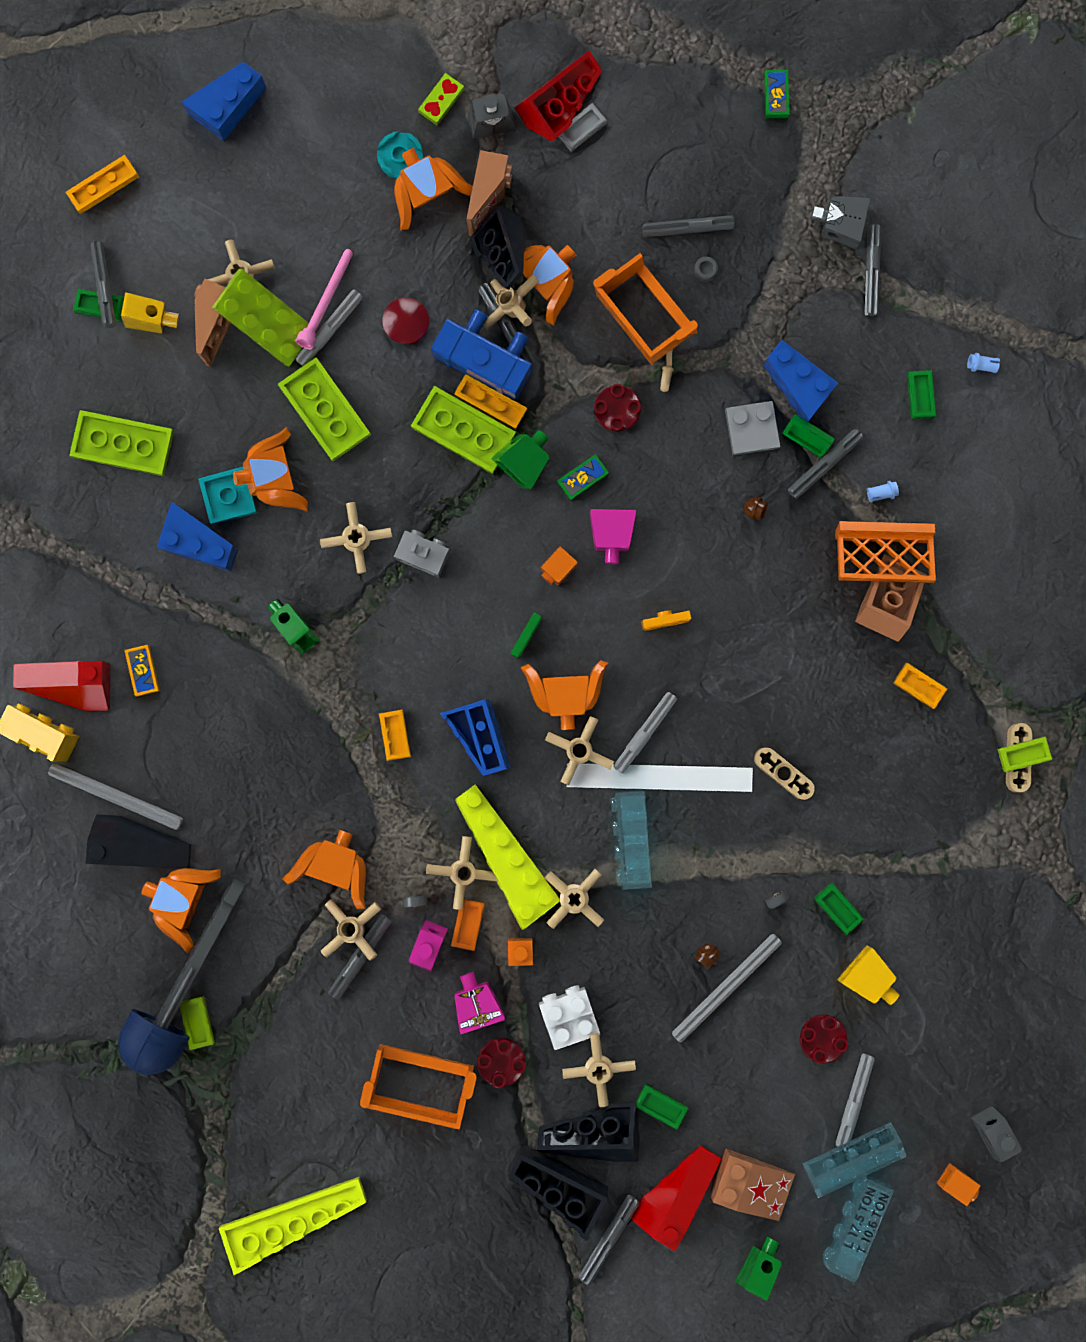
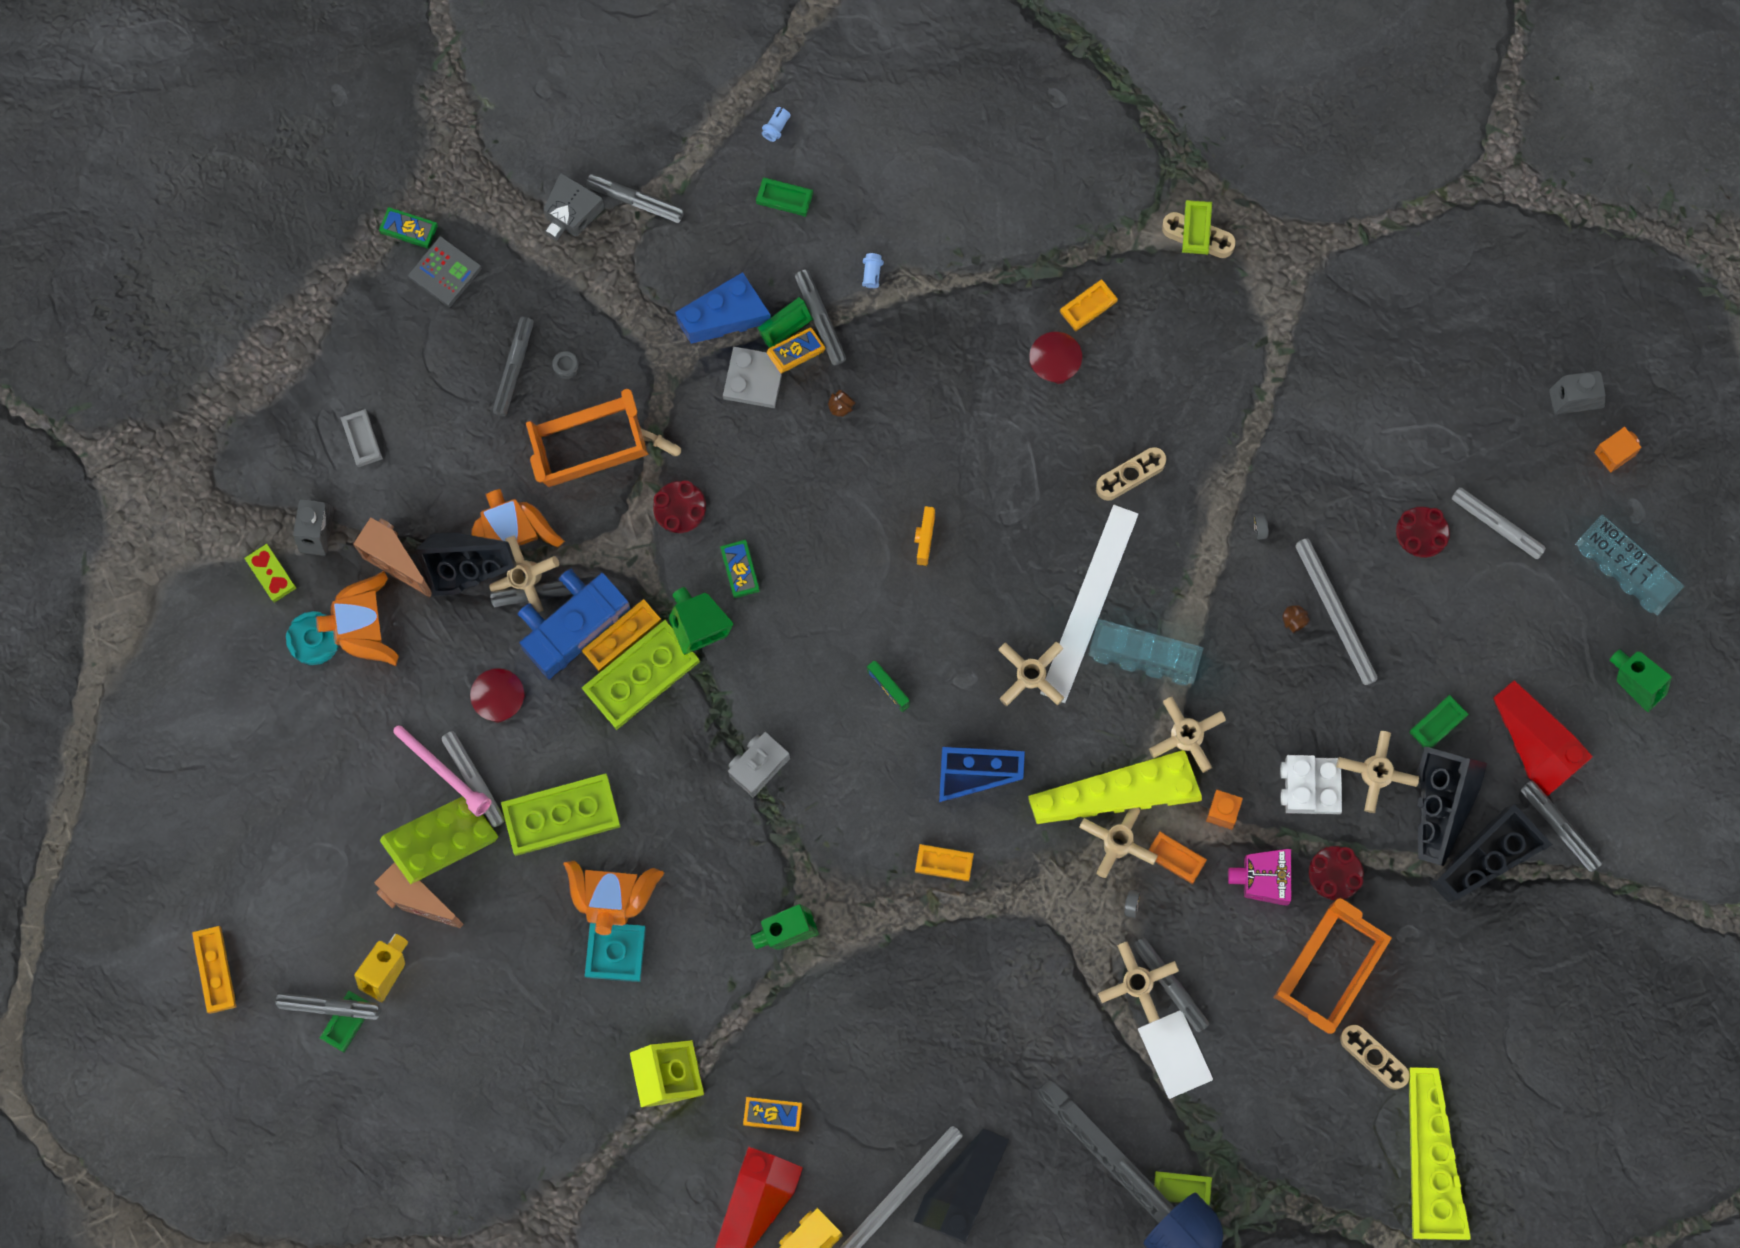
camera: 60 degrees left, 10 degrees down
(121, 443) = (512, 1048): lime plate -> none
(143, 574) = (666, 1073): none -> neon yellow slope
(176, 901) = (1041, 1161): orange torso -> none
(195, 541) = (652, 1002): blue wedge -> none
(226, 100) = (178, 802): blue wedge -> none
(237, 264) = (364, 853): tan bar -> none
(305, 979) = (1175, 1054): none -> white sticker
(334, 865) = (1062, 975): orange torso -> none
(348, 534) = (720, 837): tan bar -> none
(358, 1164) = (1385, 1077): none -> tan beam
(427, 945) = (1186, 906): dark pink torso -> none
(555, 103) = (324, 454): red wedge -> none
(558, 566) = (826, 626): orange brick -> none
(566, 695) = (967, 665): orange torso -> none
(612, 531) = (810, 558): dark pink torso -> none
(645, 732) = (1037, 600): light grey axle -> none
(749, 138) = (444, 272): none -> dark grey tile
(751, 1186) = (1551, 658): nougat slope -> none
(788, 453) = (796, 350): none -> tile
(838, 908) = (1292, 469): green tile -> none
(854, 1160) = (1558, 543): clear light blue brick -> none
(864, 674) = (1055, 357): none -> dark red dish
(870, 977) = (1374, 461): yellow torso -> none
(881, 533) = (915, 287): orange fence -> none
(890, 605) = (987, 301): nougat slope -> none

